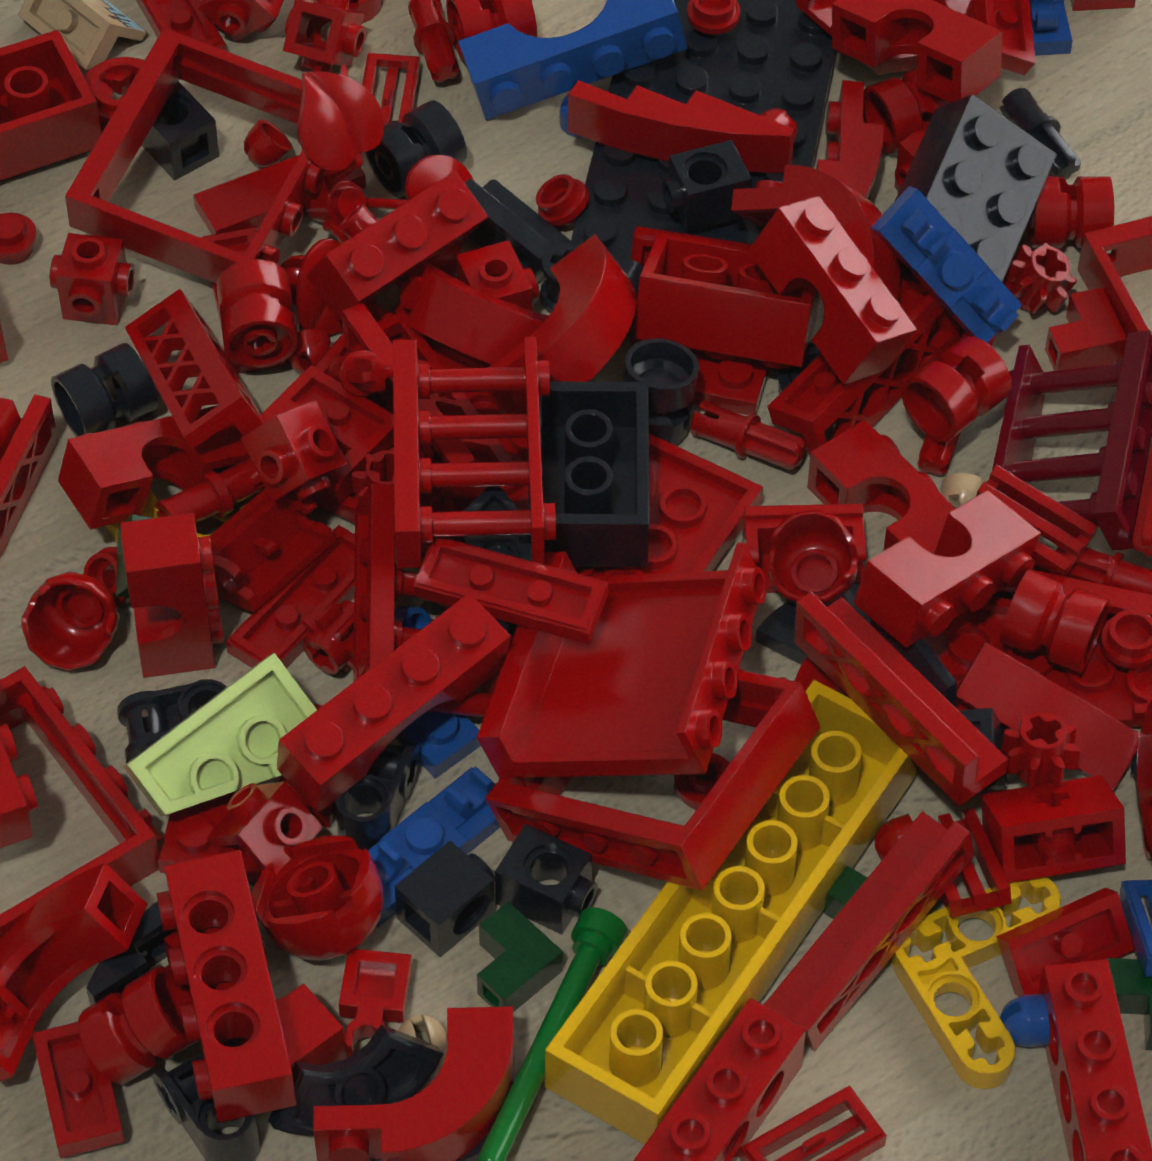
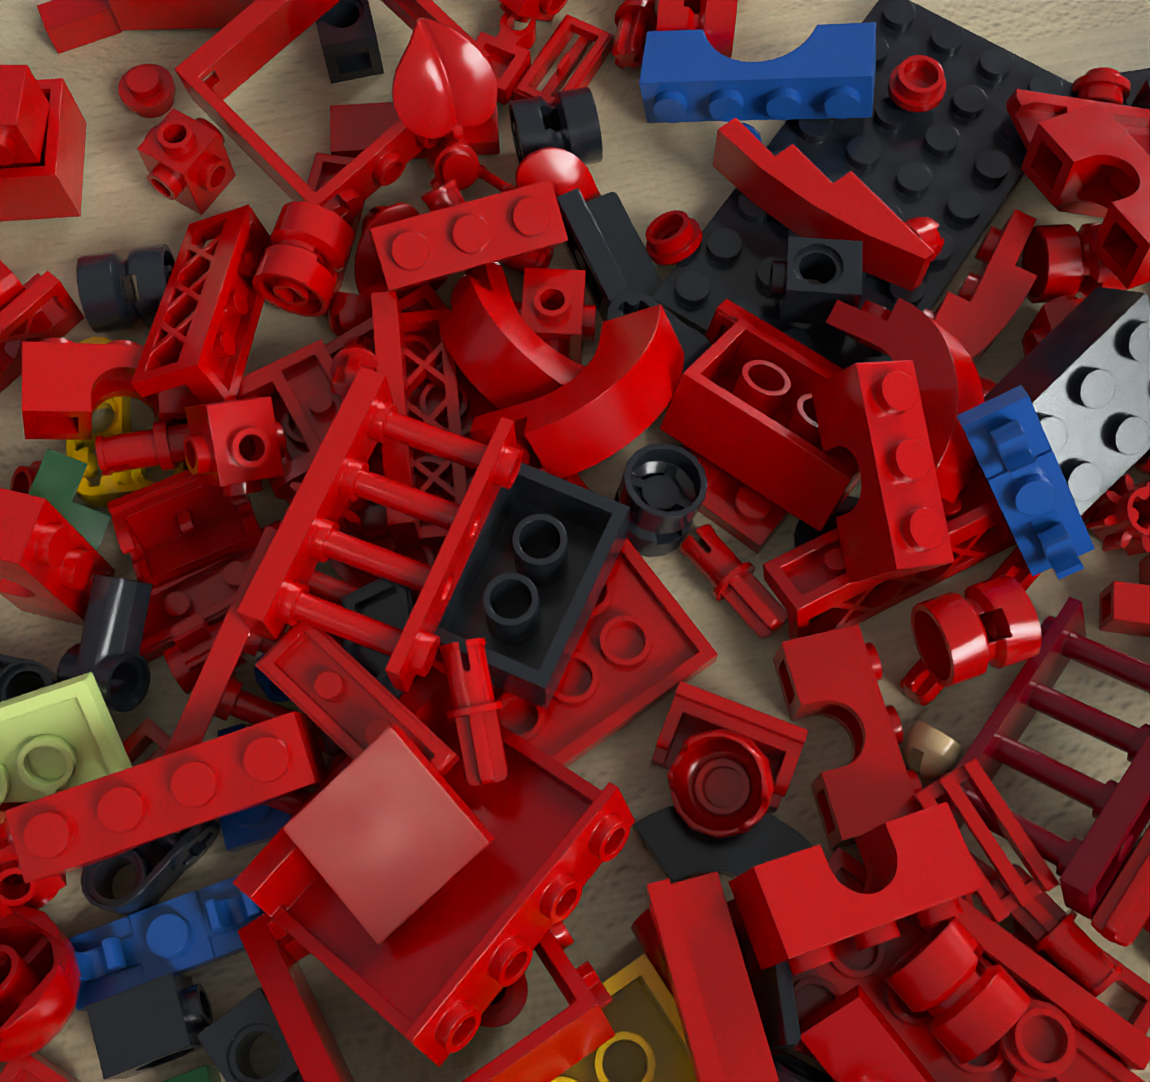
camera: 25 degrees right, 15 degrees up
(253, 631) = (113, 642): none -> black piece
(585, 647) = (388, 833): none -> red tile
(603, 553) = (475, 713): none -> red axle

